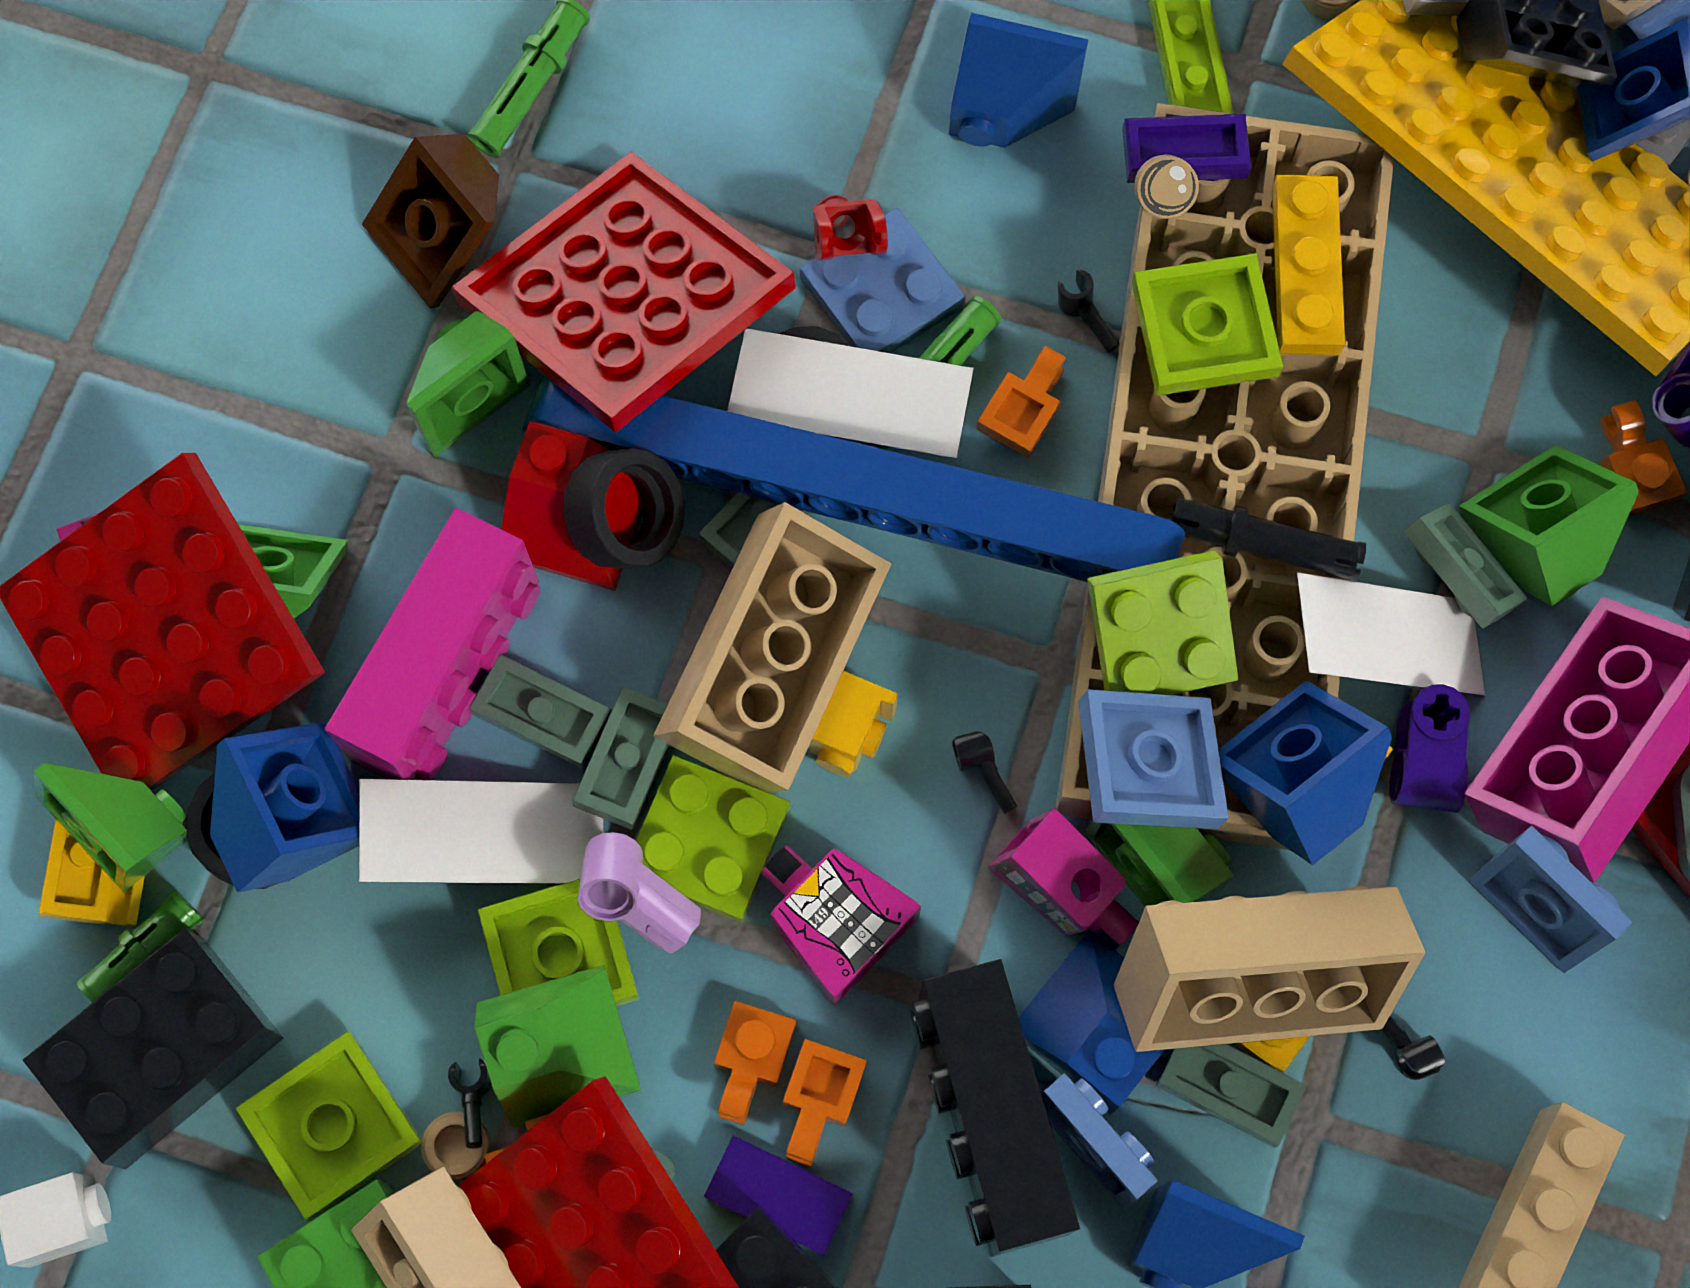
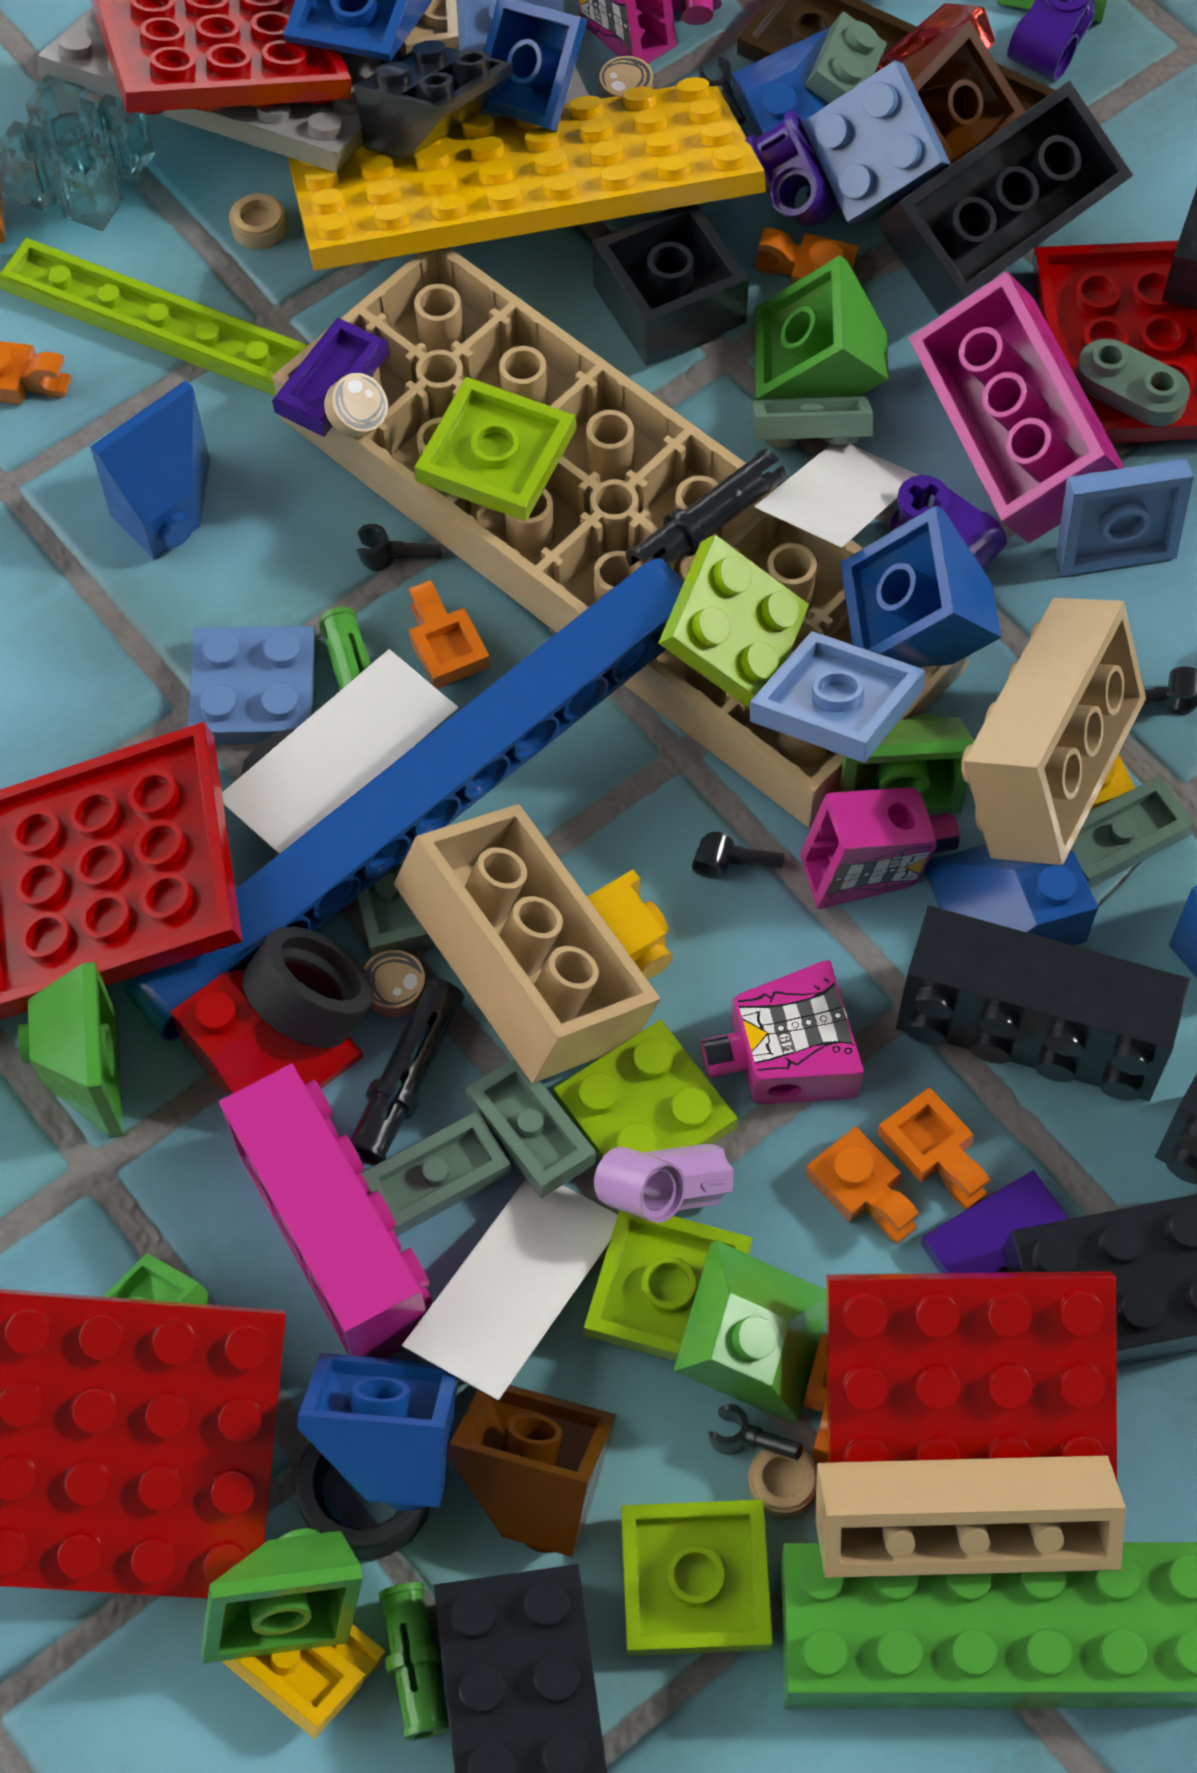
camera: 55 degrees left, 10 degrees down
(343, 941) = (532, 1464): none -> reddish brown slope
(538, 641) = (436, 1008): none -> black pin
(689, 572) = (396, 981): none -> tan tile
(859, 232) = (191, 664): red piece -> none
(1115, 1161) = (1141, 932): medium blue plate -> none
(1308, 265) = (495, 351): yellow plate -> none
(1512, 357) = (670, 282): none -> black brick

